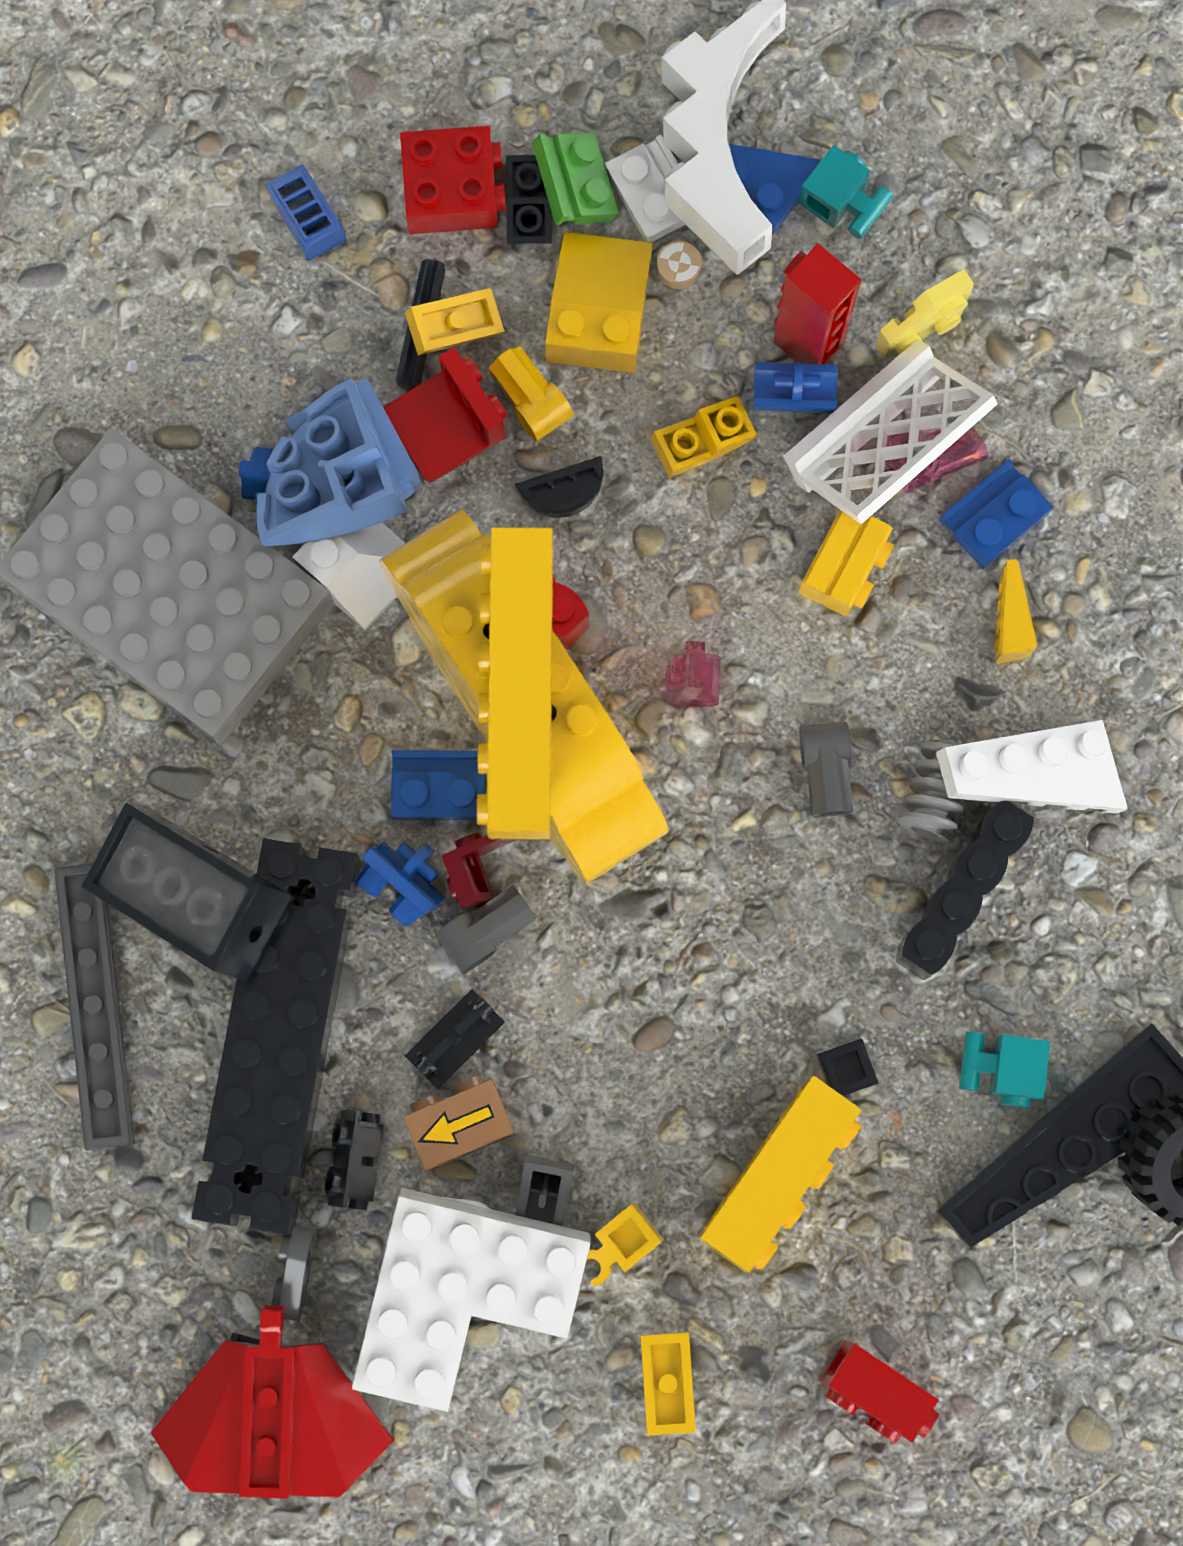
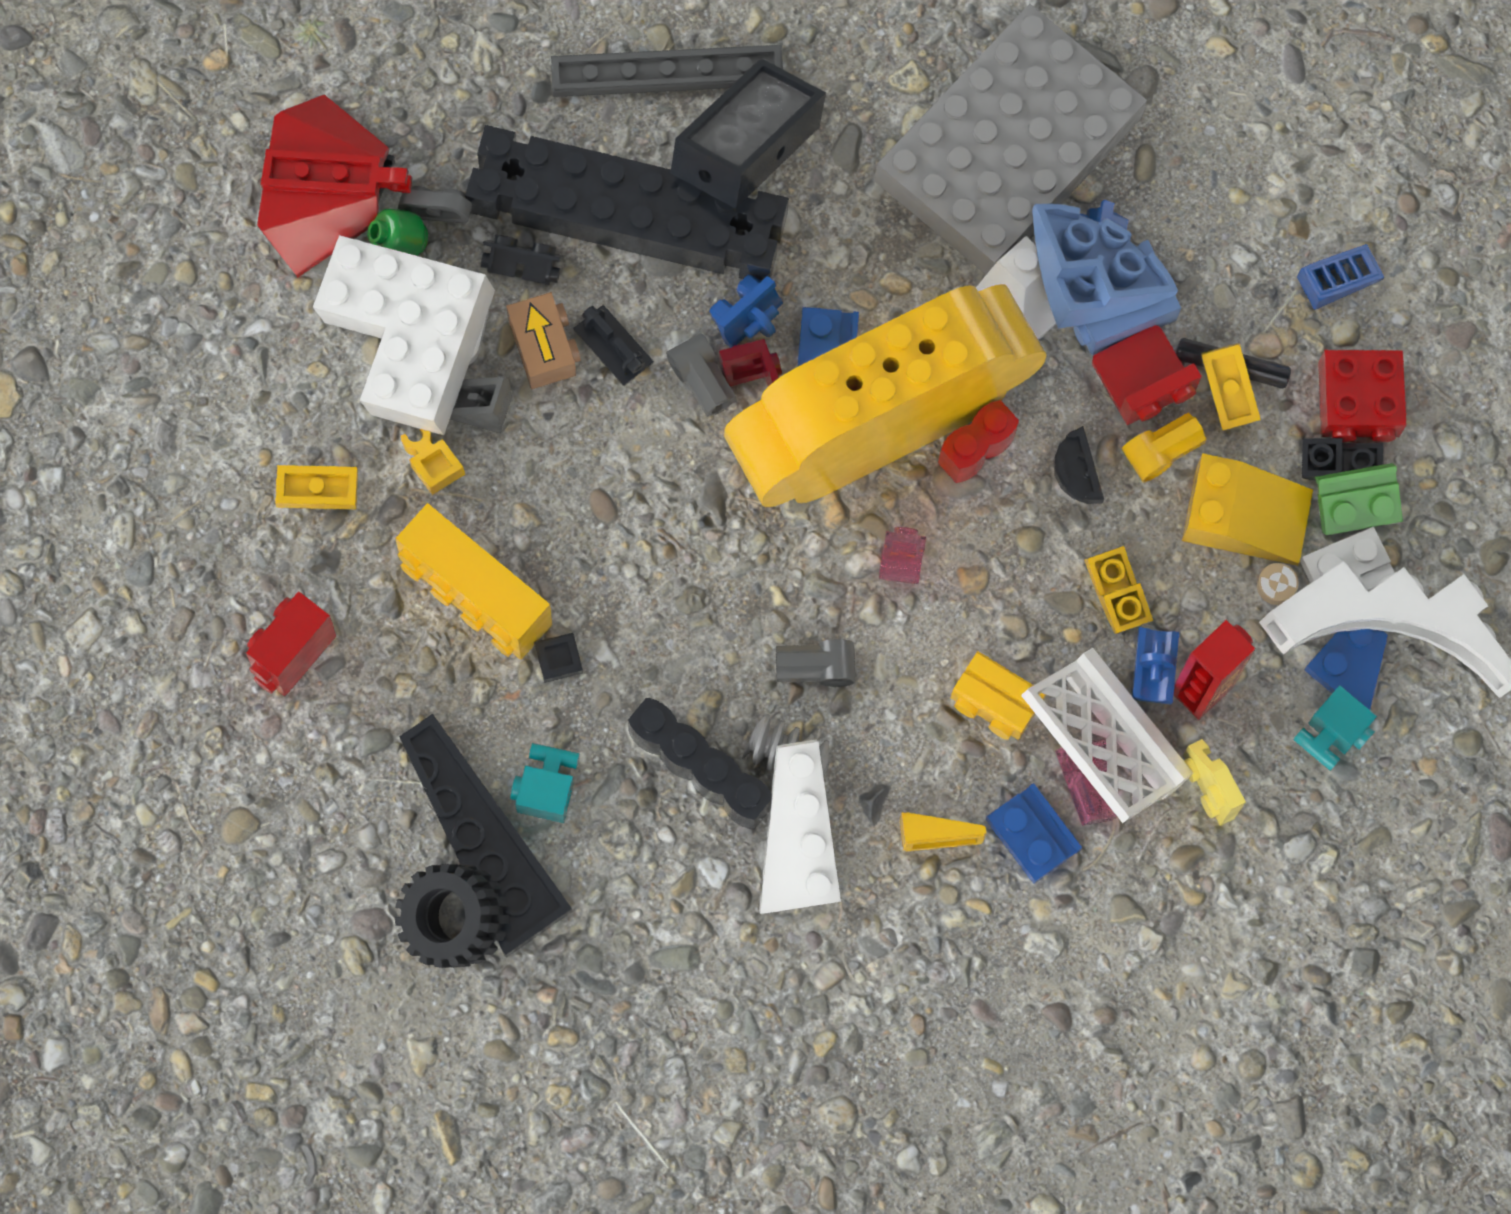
camera: 90 degrees right, 5 degrees down
(338, 1315) = (399, 231): none -> green head
(519, 684) = (876, 354): yellow brick -> none

